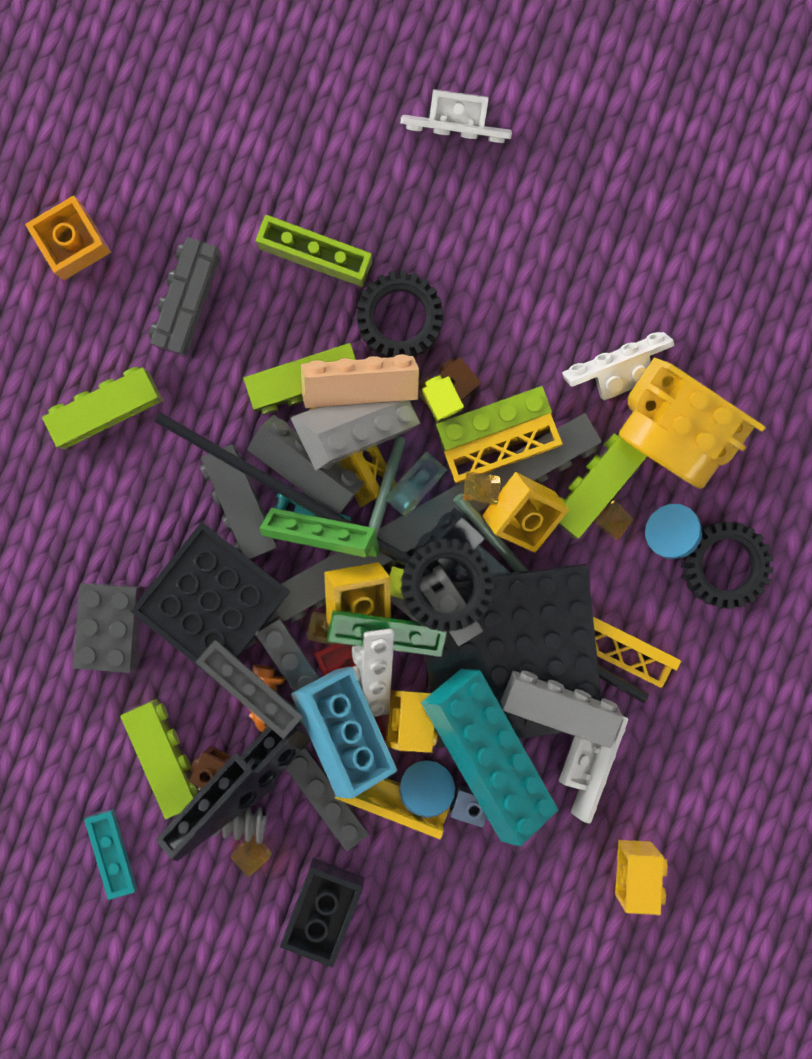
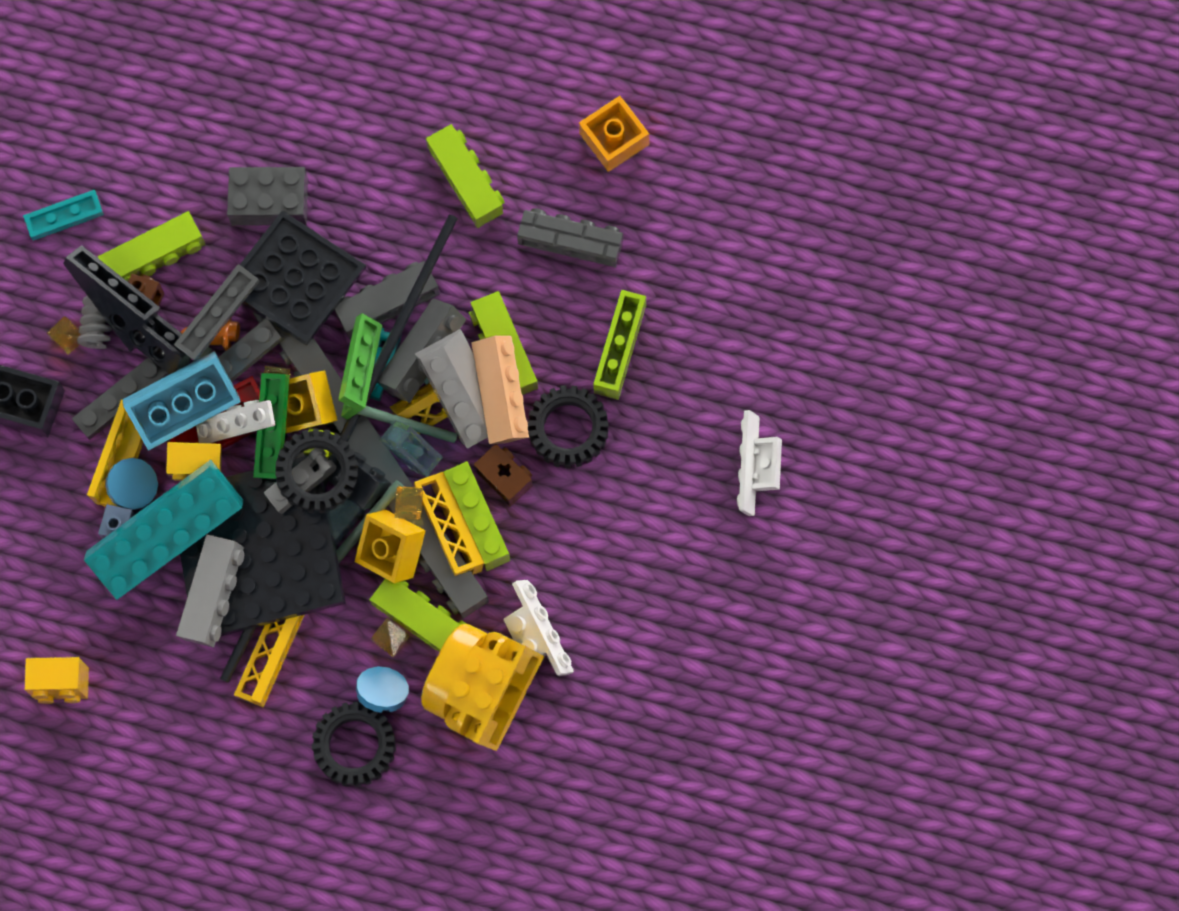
camera: 85 degrees right, 15 degrees down
(442, 398) = (489, 462): neon yellow brick -> none
(588, 771) = (158, 628): white bracket -> none

